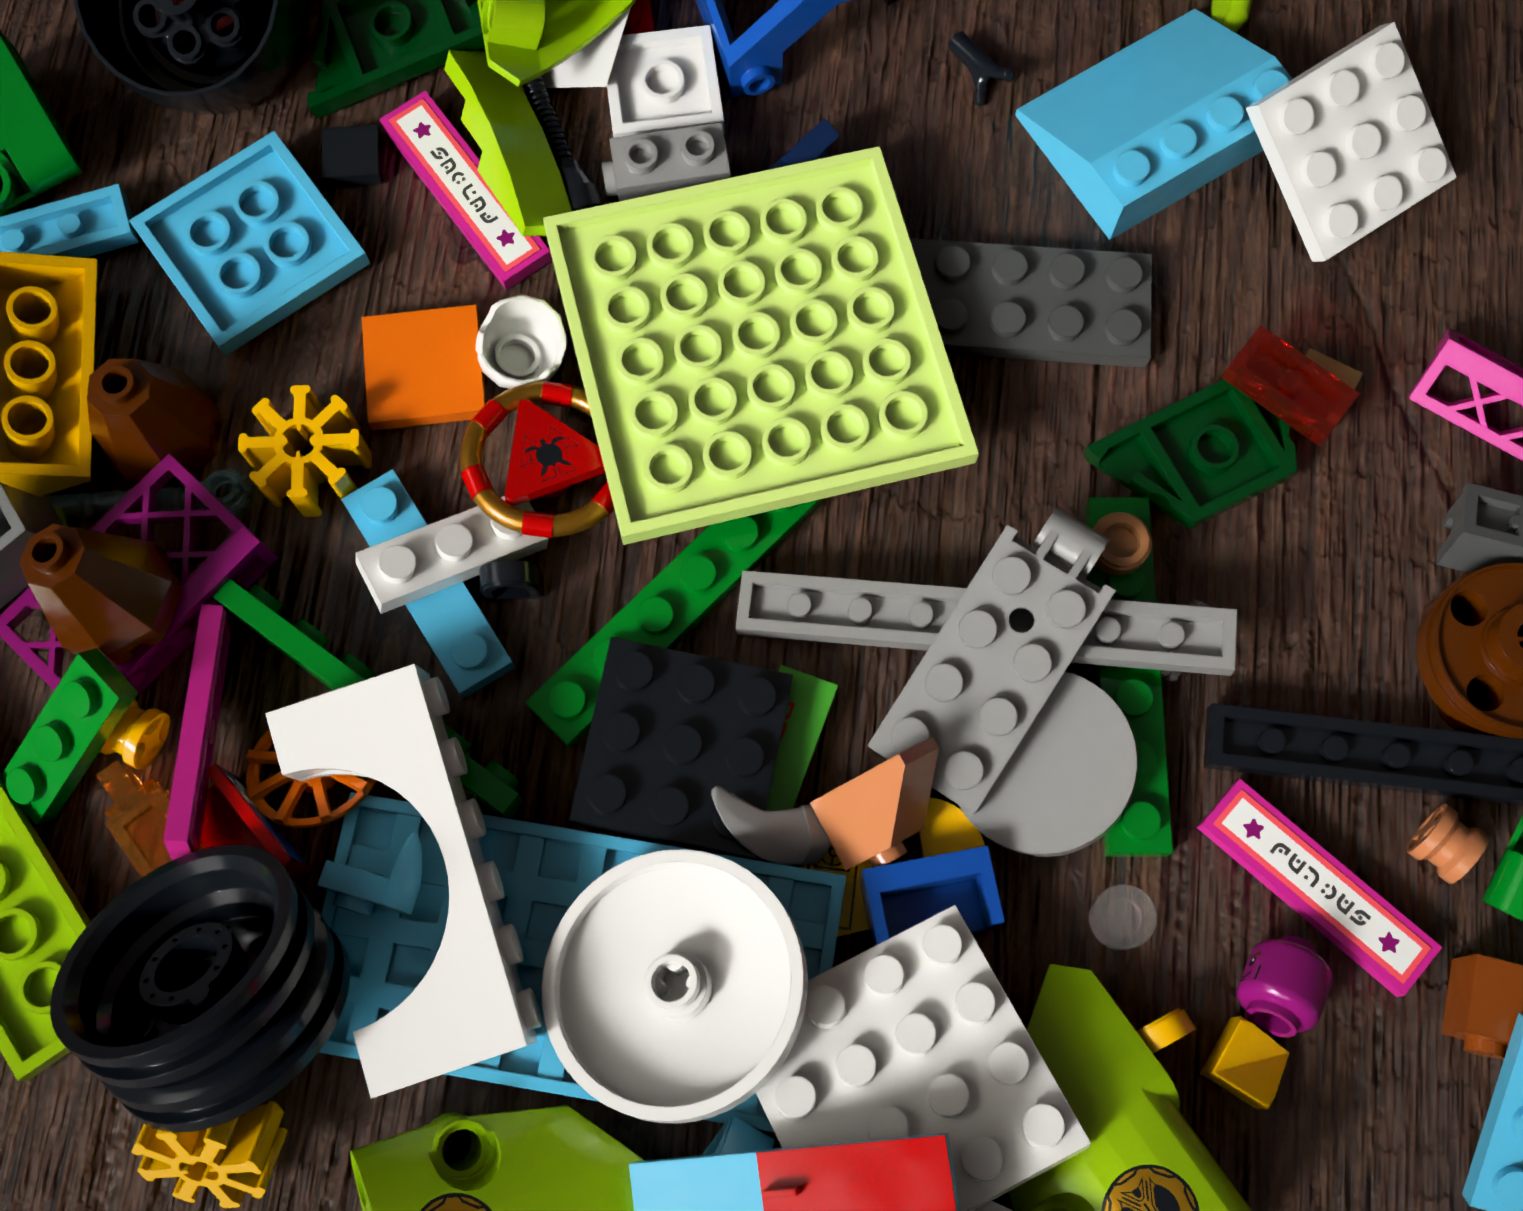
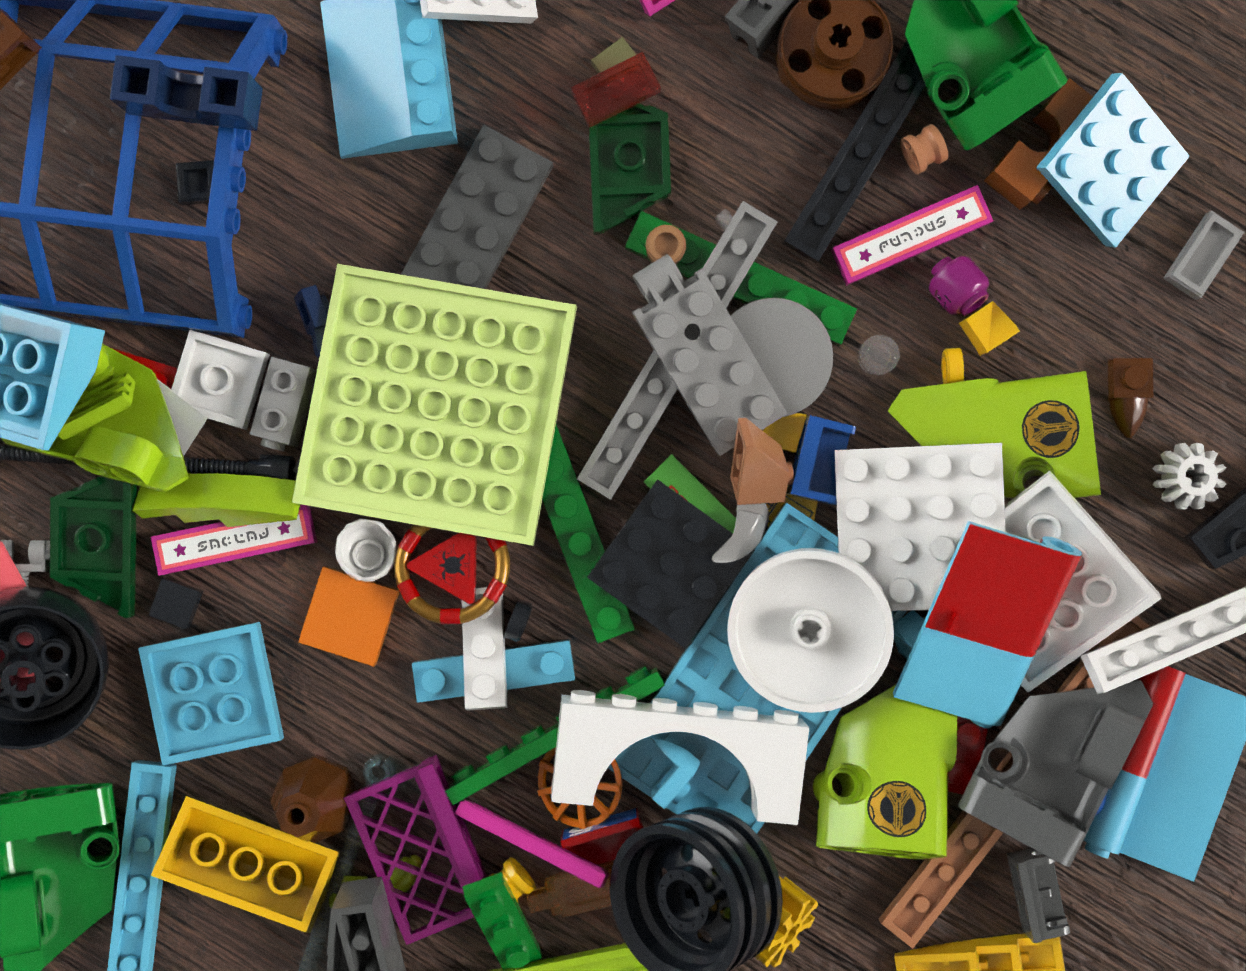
camera: 70 degrees left, 15 degrees up
(101, 589) = (425, 869): reddish brown cone -> none
(278, 460) = (369, 724): yellow gear -> none
(978, 64) = (298, 165): black bar -> none

